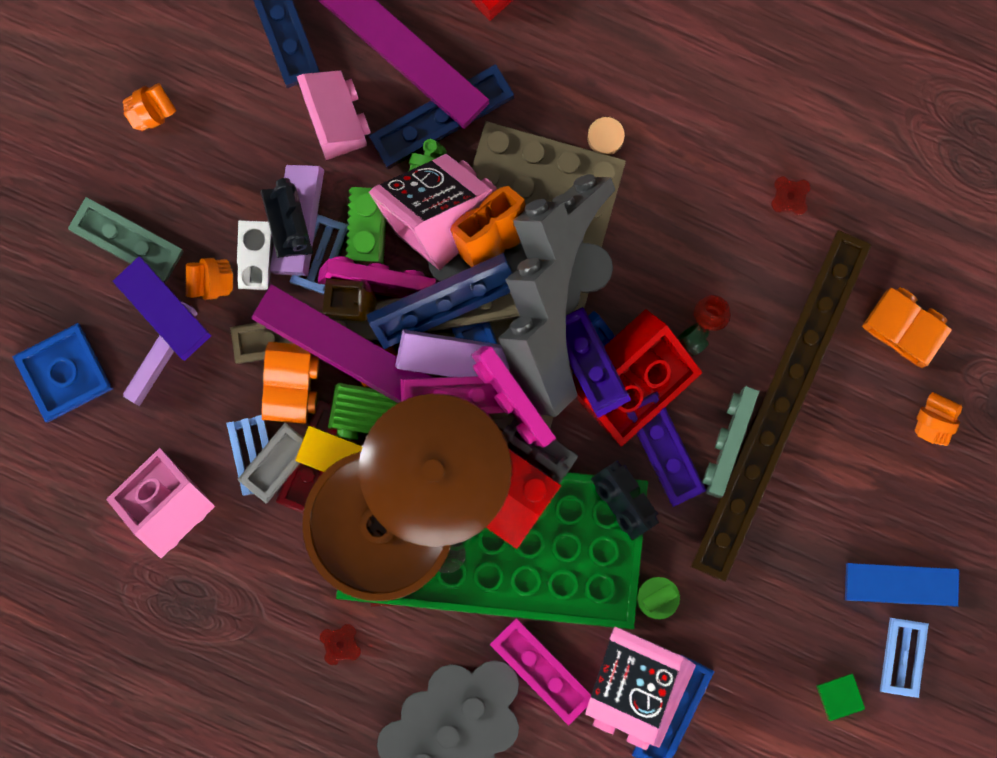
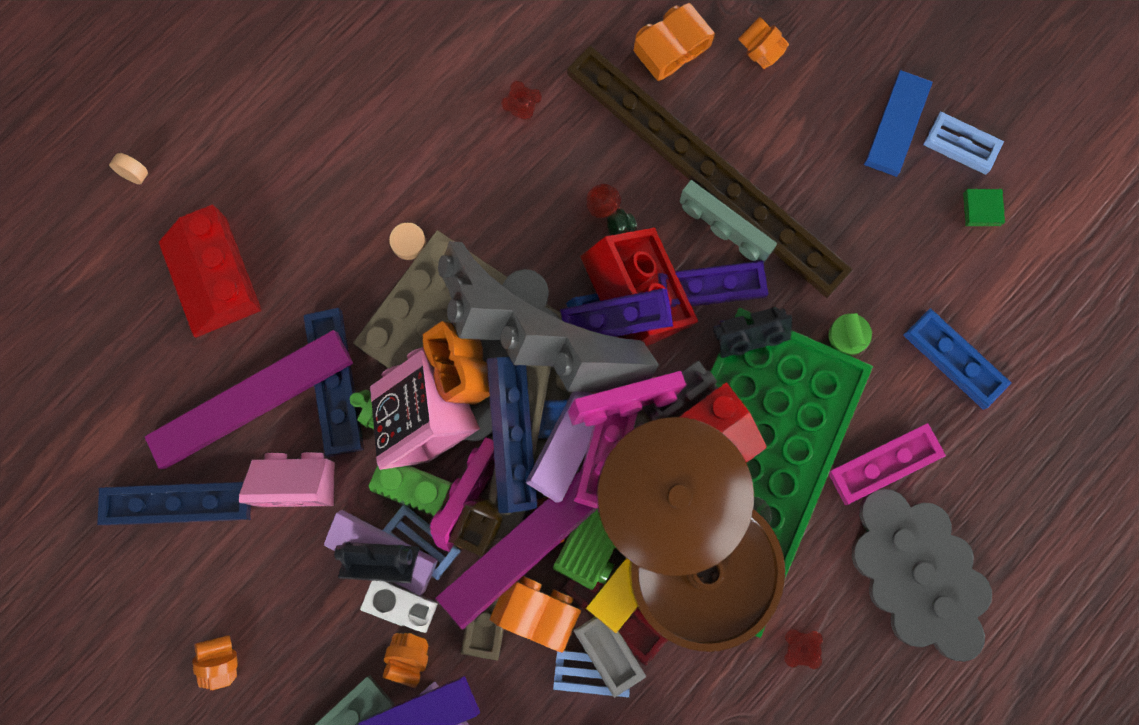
camera: 65 degrees left, 5 degrees down
(638, 689) = (935, 377): slope -> none

